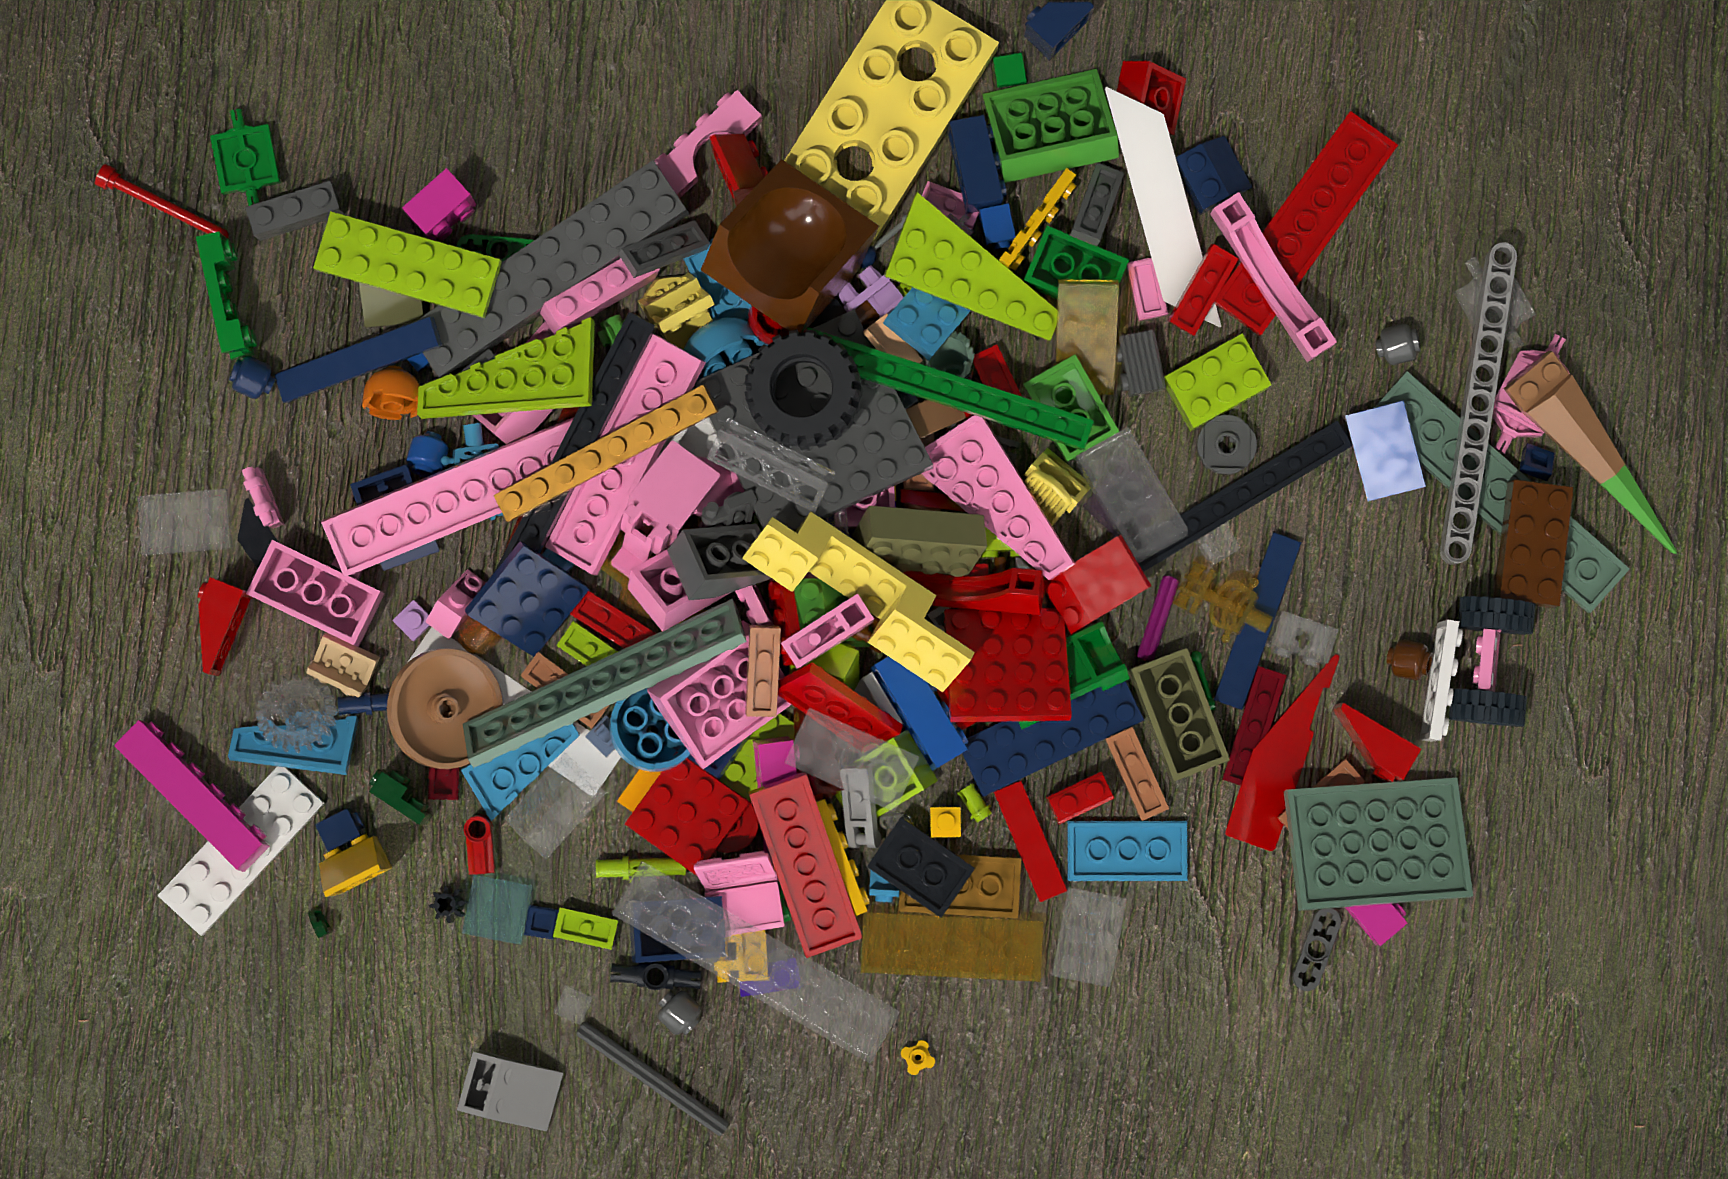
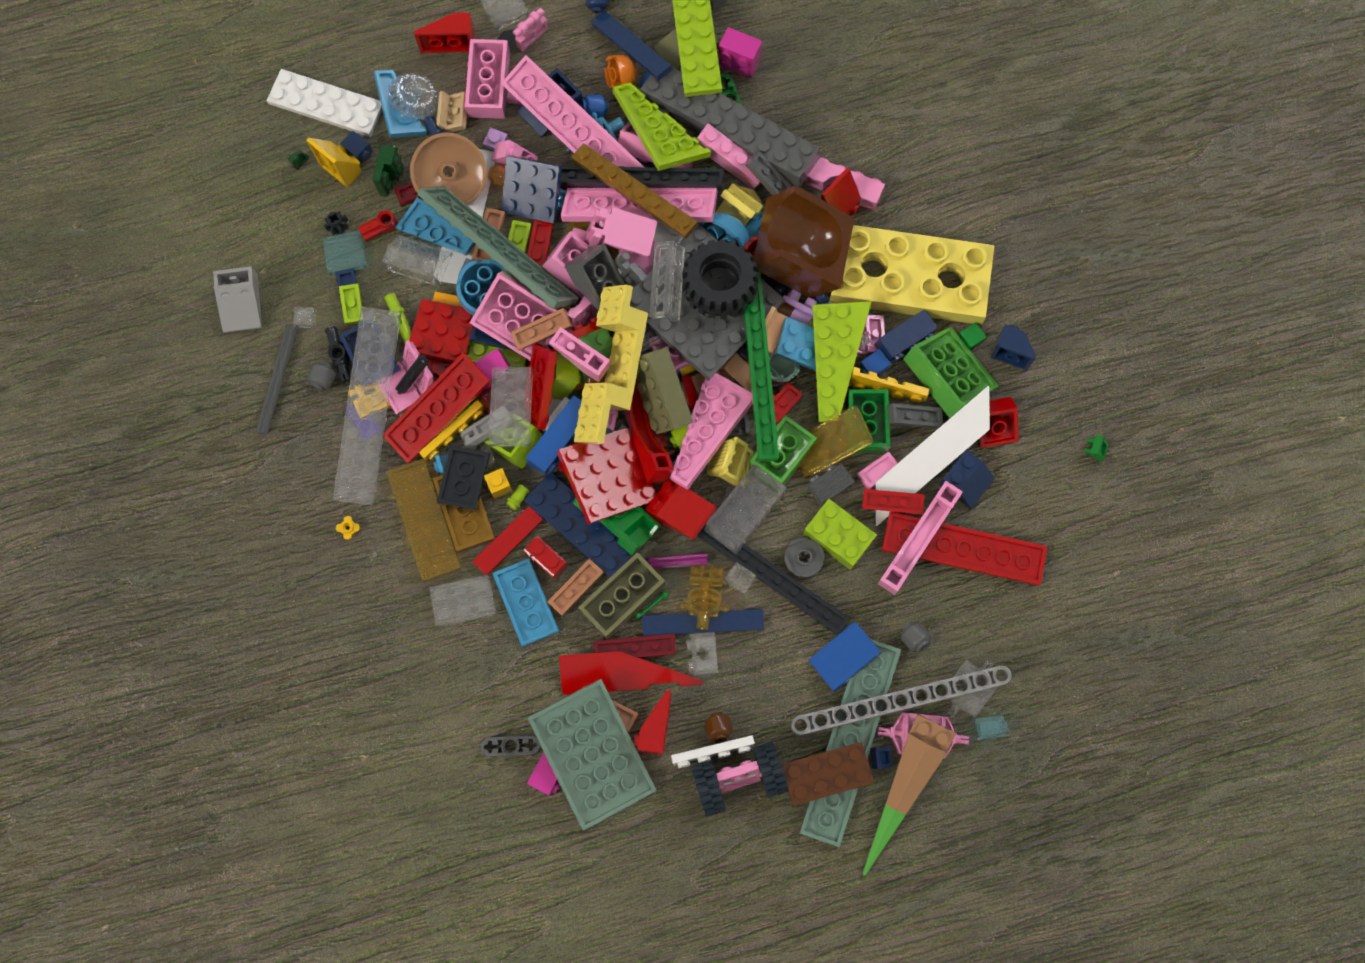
camera: 75 degrees right, 10 degrees down
(192, 795) = (343, 61): dark pink brick -> none
(746, 880) = (412, 374): none -> black axle
(1558, 300) = (991, 727): none -> clear light blue brick

